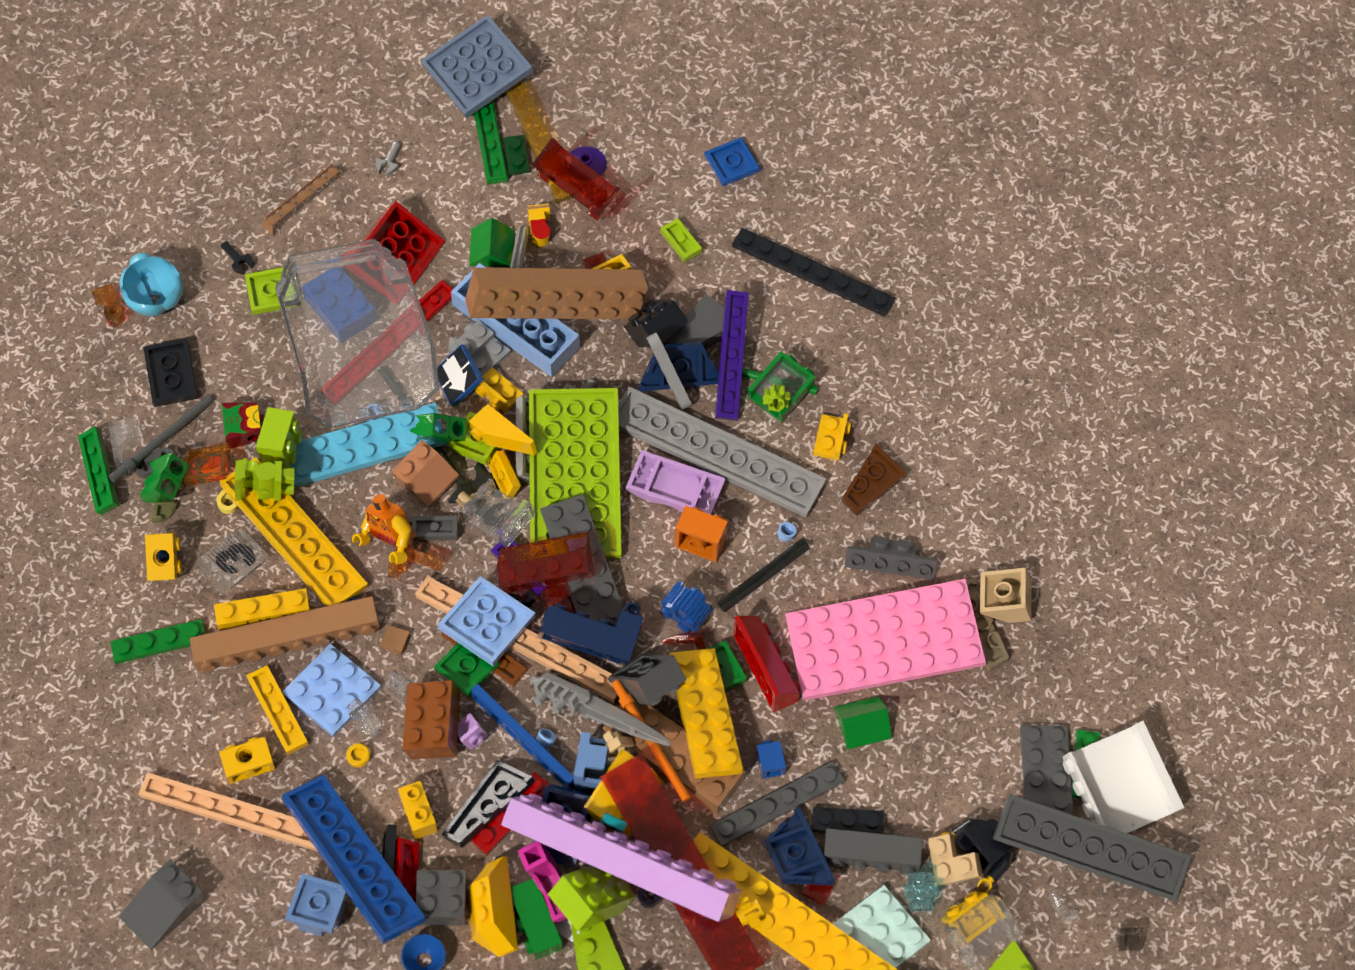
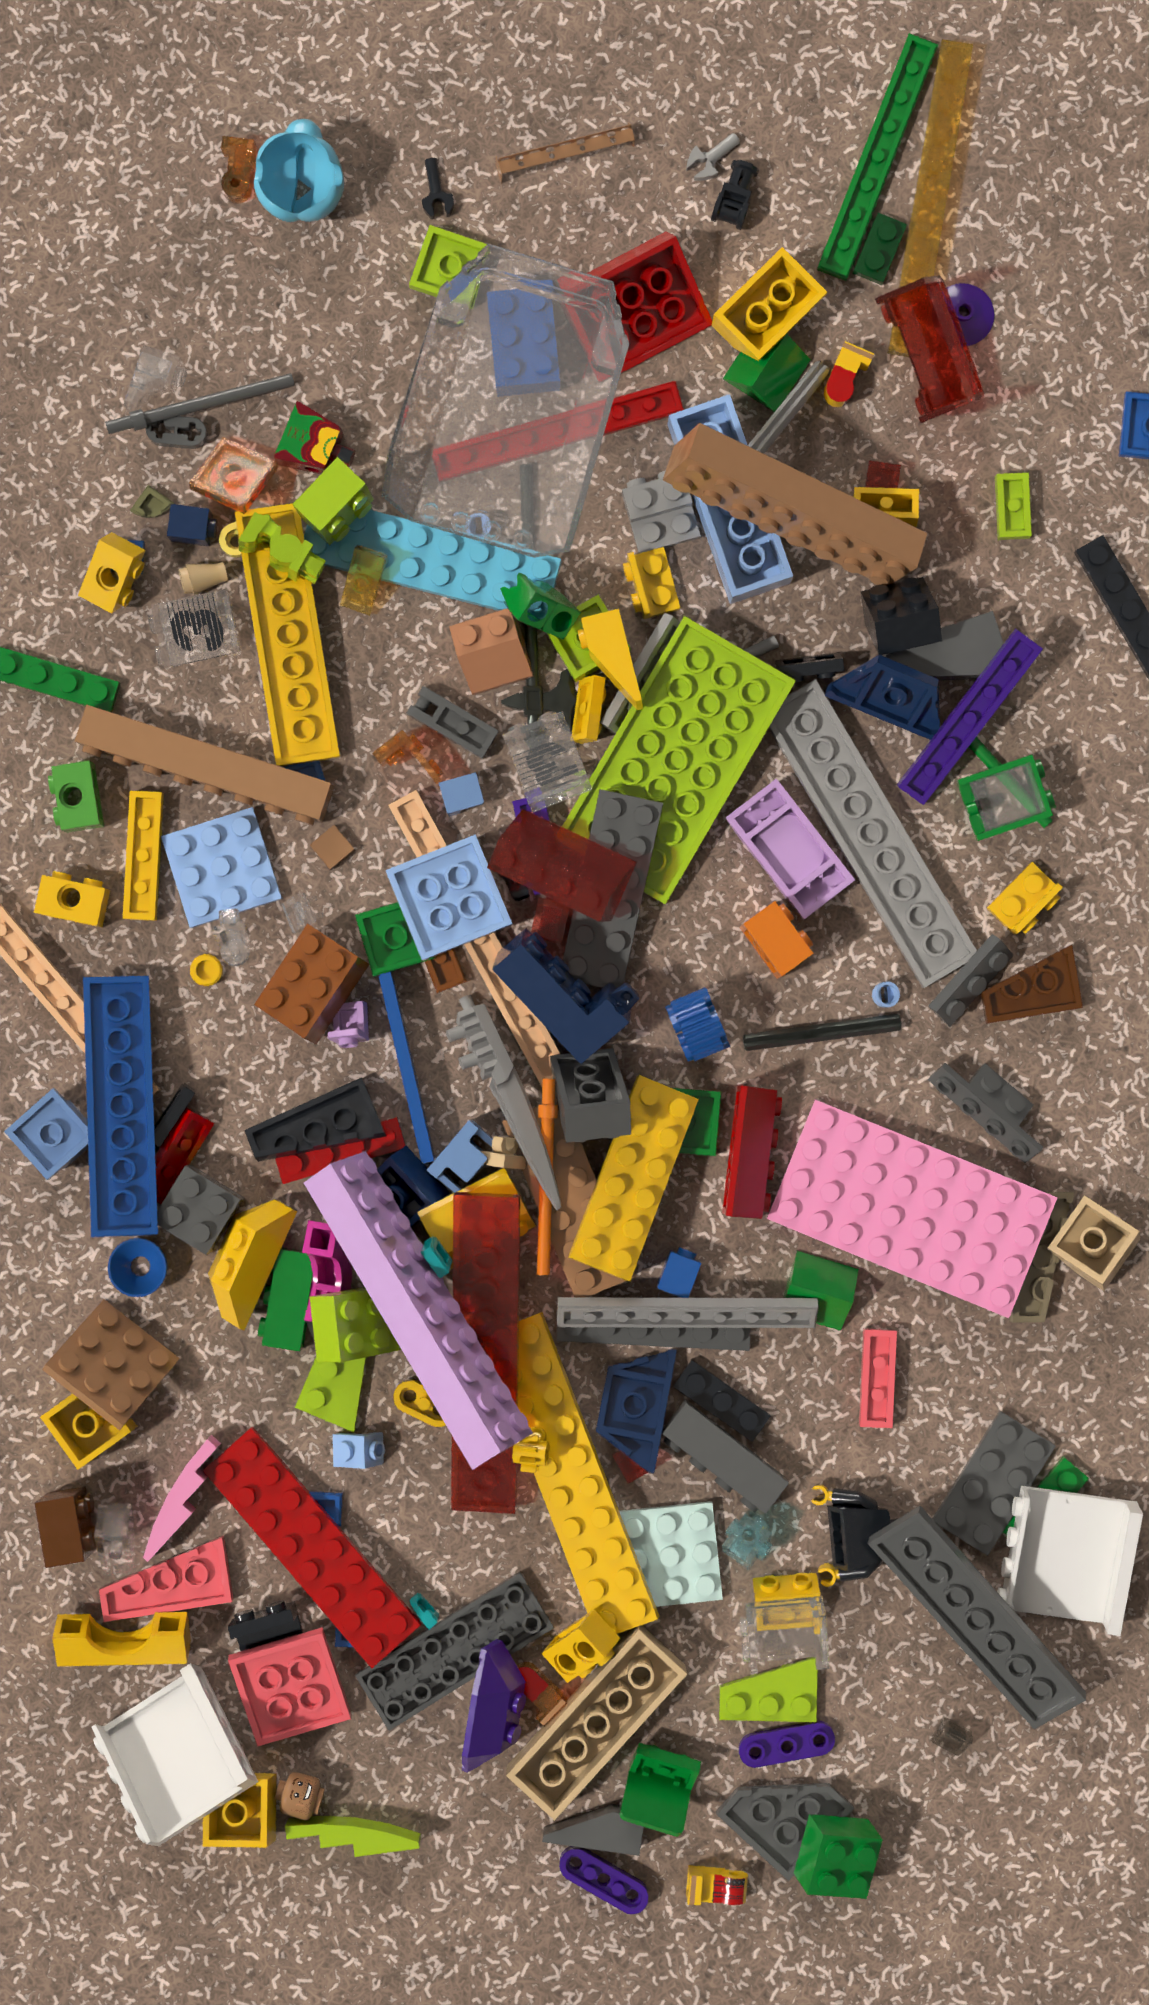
camera: 35 degrees right, 25 degrees up
(98, 470) = (101, 401): green plate -> none
(168, 493) = (175, 478): green piece -> none
(170, 372) = (262, 313): black plate -> none
(195, 506) = (191, 525): none -> dark blue brick
(208, 686) = (89, 811): none -> bright green brick
(219, 531) = (200, 577): none -> tan cone
(260, 608) = (193, 718): yellow brick -> none
(322, 478) = (363, 580): none -> clear yellow plate
(389, 524) = (403, 702): torso -> none
(415, 169) = (734, 199): none -> black connector
(417, 810) = (232, 1085): yellow brick -> none
(455, 562) = (461, 793): none -> medium blue panel
(458, 375) = (612, 536): tile -> none
(463, 497) = (520, 715): tan hand -> none
(471, 211) = (768, 306): none -> yellow slope
(477, 66) = (907, 83): sand blue plate -> none
(545, 738) = (434, 1084): light blue hinge -> none
(628, 378) = (823, 665): none -> black plate
(662, 933) = (419, 1408): none -> yellow plate
(669, 371) = (872, 697): light grey beam -> none
(685, 638) = (677, 1058): clear red bar -> none
(776, 398) = (983, 817): lime gear -> none
(789, 775) = (687, 1312): none -> light grey tile
(831, 495) = (971, 980): none -> dark grey plate
(933, 750) = (877, 1378): none -> coral plate
(949, 867) = (799, 1533): tan plate -> none
(1061, 909) = (895, 1654): clear arm -> none

